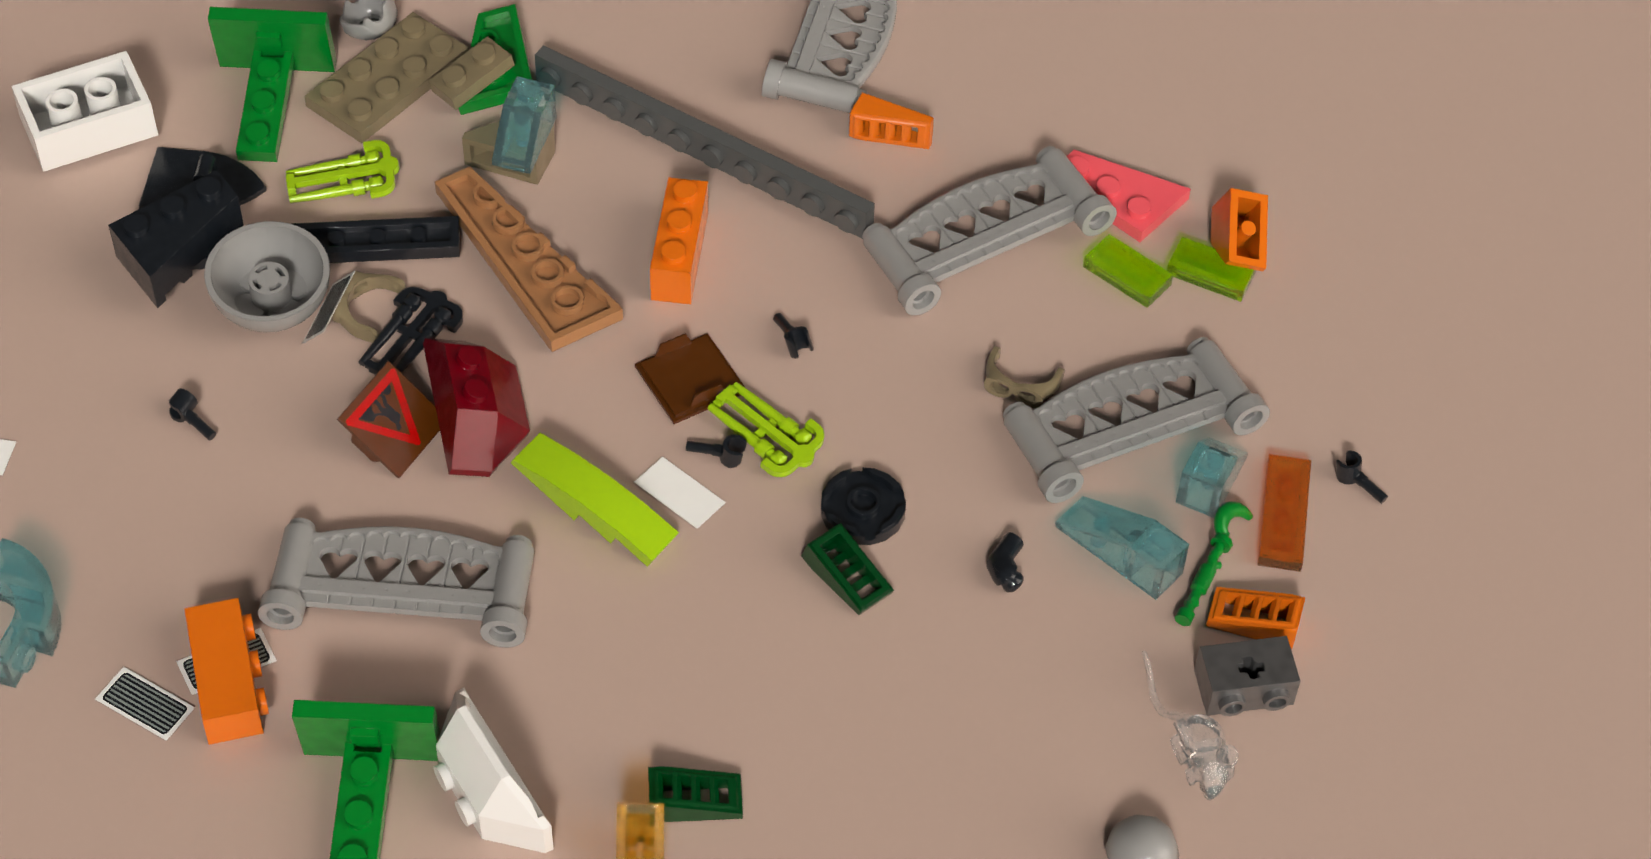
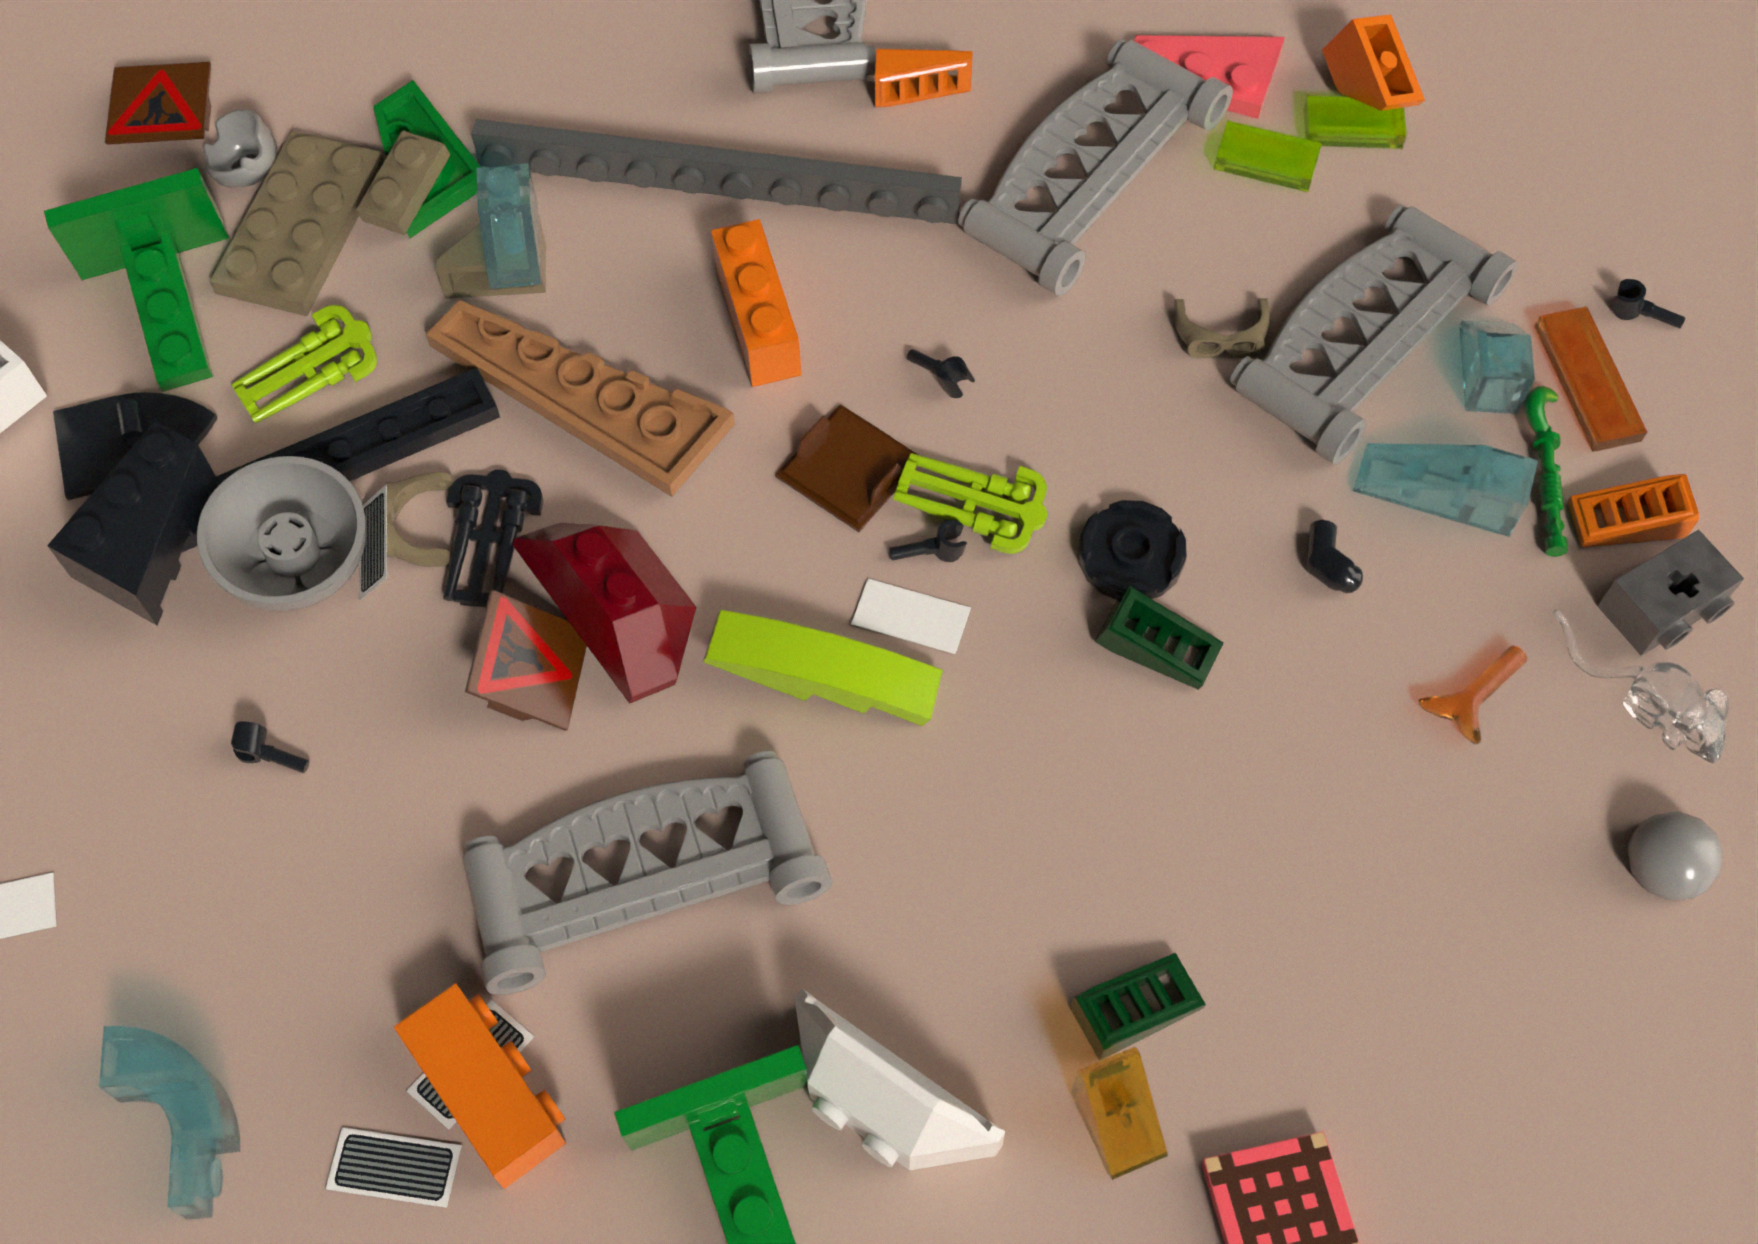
camera: 20 degrees left, 10 degrees up
(1047, 696) = (1464, 705): none -> clear orange piece

